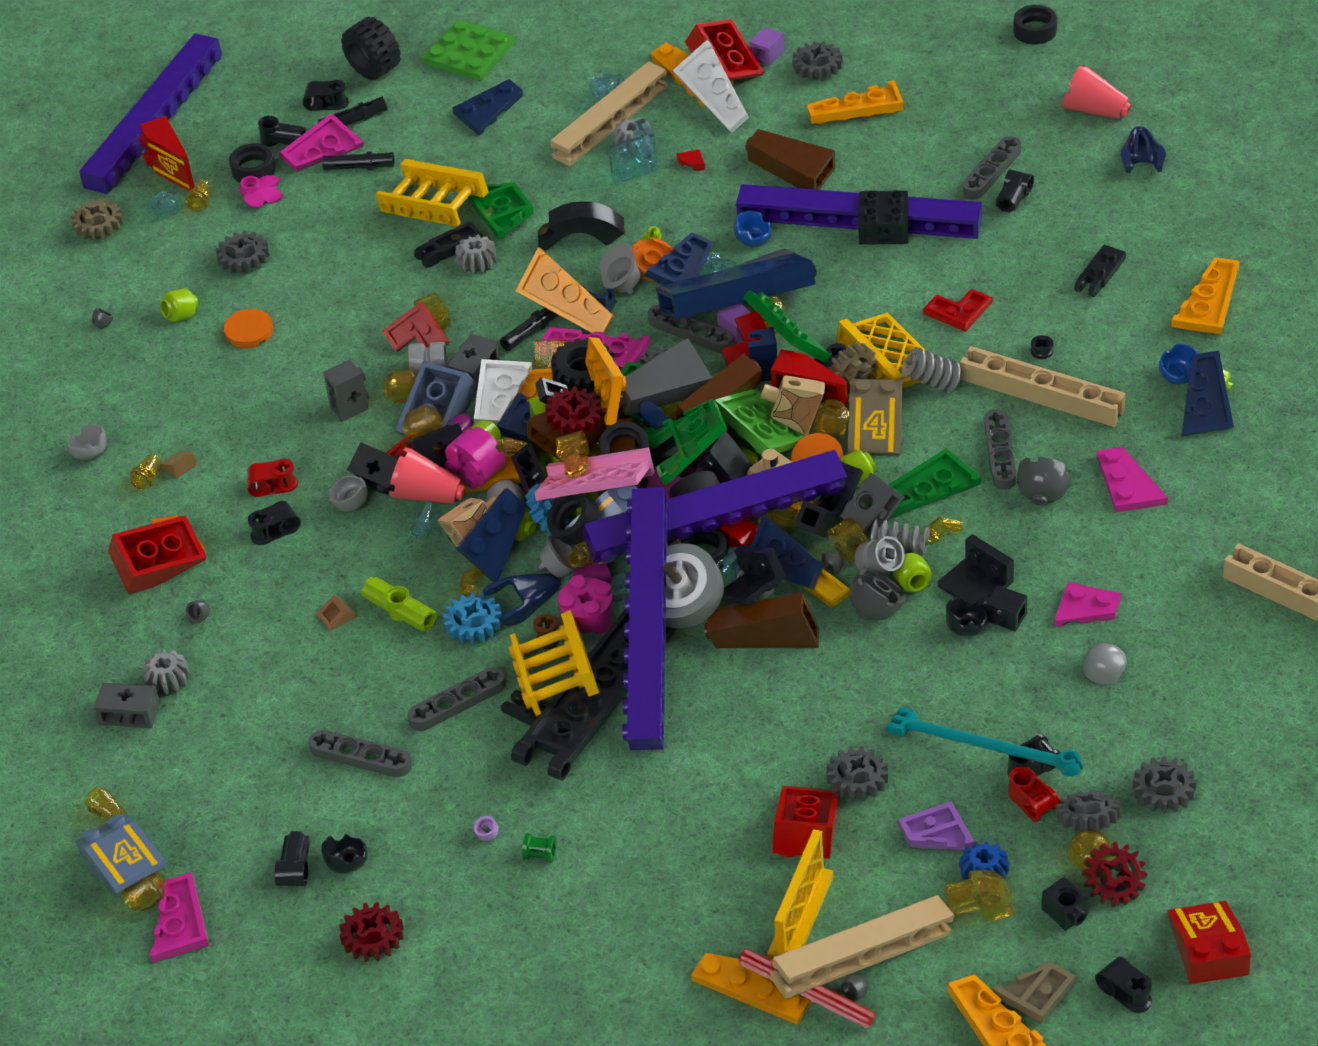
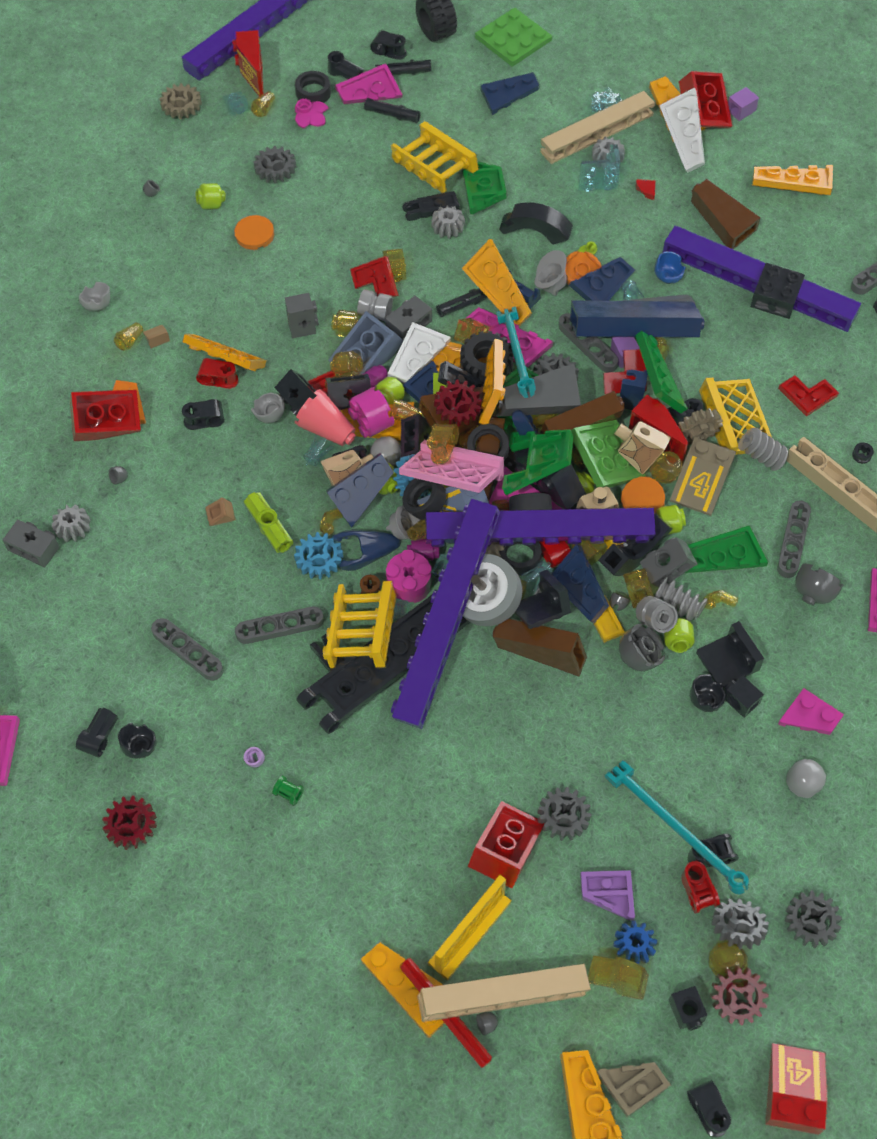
camera: 15 degrees right, 15 degrees up
(305, 456) = (225, 352): none -> light orange wing
(644, 366) = (525, 384): none -> teal hinge
(817, 60) = (777, 129): dark grey gear -> none

